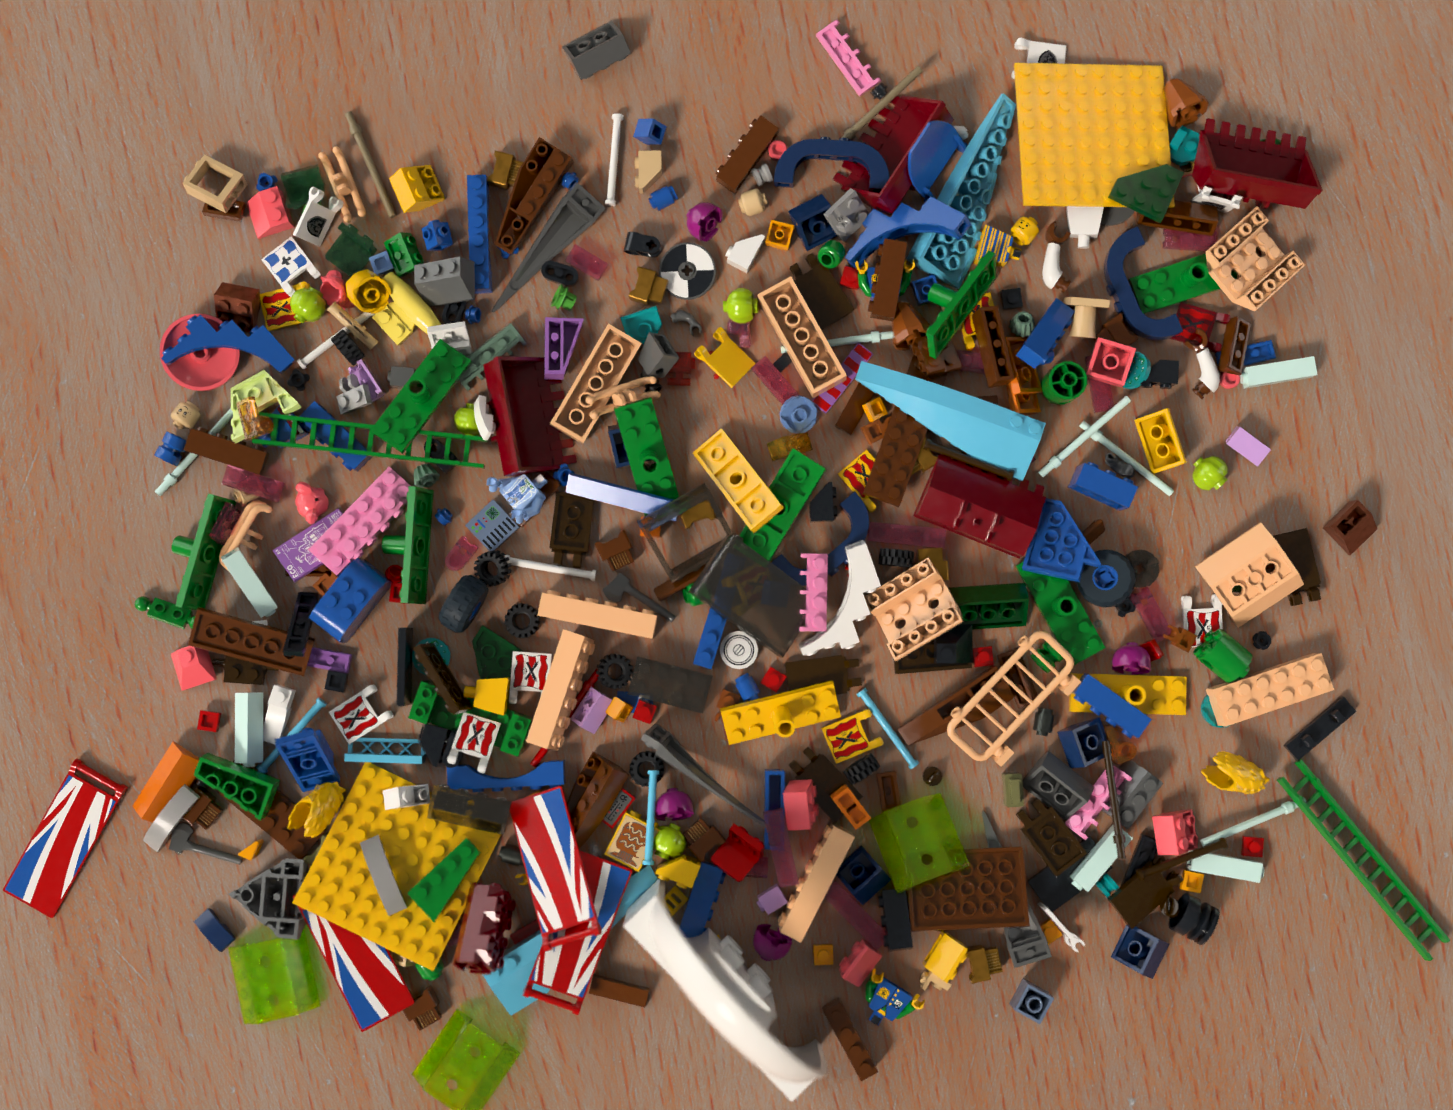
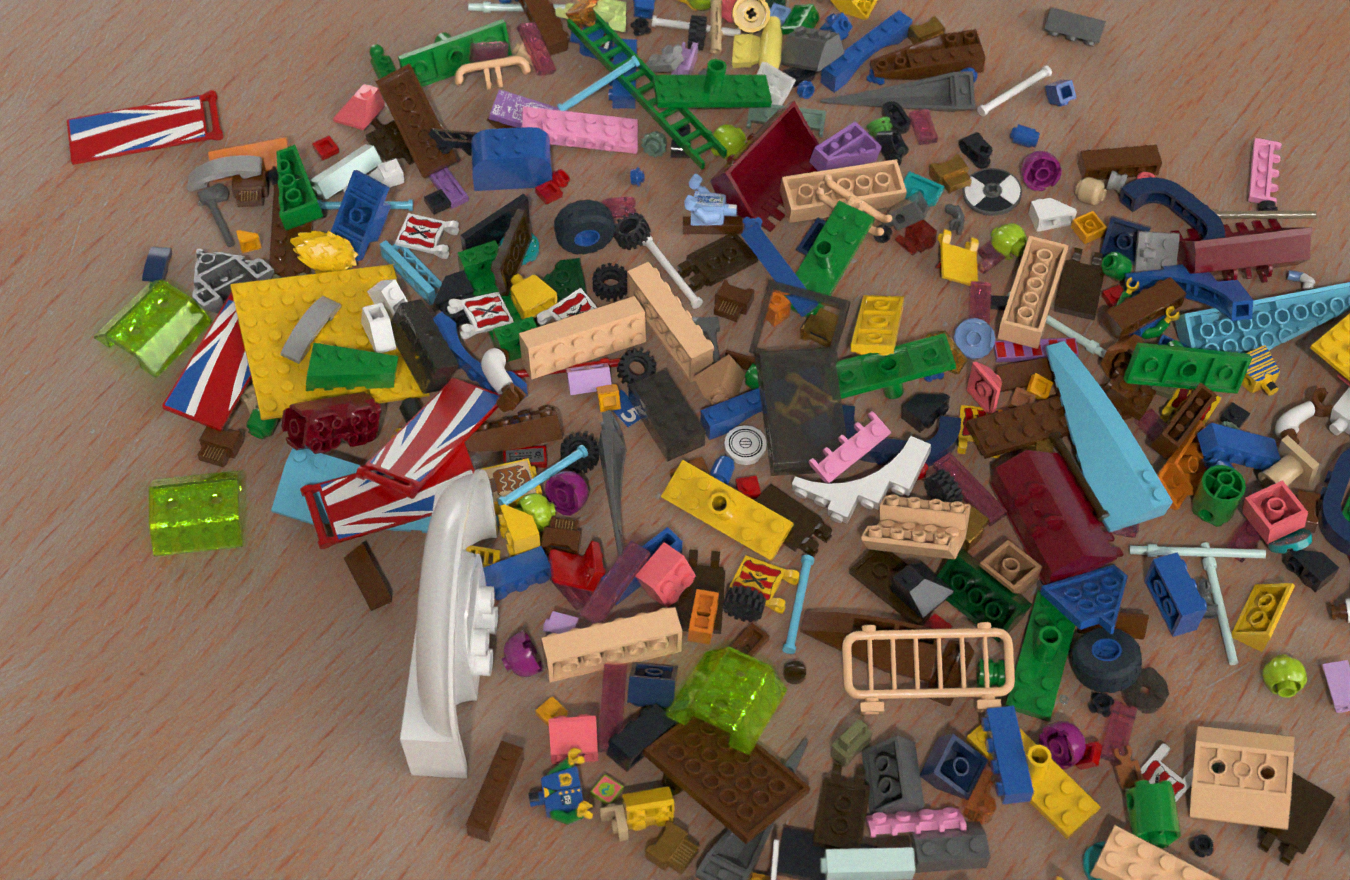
camera: 50 degrees right, 30 degrees down
(249, 582) = (460, 92): light aqua brick -> none
(306, 502) = (555, 91): coral hair -> none
(338, 475) = (599, 84): none -> medium azure bar
(414, 545) = (596, 170): green plate -> none
(426, 828) = (378, 328): none -> white slope
(483, 419) = (736, 139): white slope -> none
(492, 526) = (663, 212): sand blue tile -> none
(534, 778) = (493, 369): none -> piece
(587, 308) = (892, 145): none -> black piece
(644, 711) = (625, 417): red plate -> none
(649, 168) = (1034, 113): tan slope -> none
(685, 632) = (721, 380): none -> medium nougat slope
(847, 448) = (984, 387): none -> coral slope
(907, 966) = (607, 790): none -> tile
(931, 154) = (1269, 261): blue piece -> none
(992, 575) = (1012, 568): none -> medium nougat slope
(1024, 230) = (1294, 379): yellow head -> none
(1043, 721) = (935, 719): pearl dark grey brick -> none
(1118, 838) = (903, 852): dark brown bar -> none

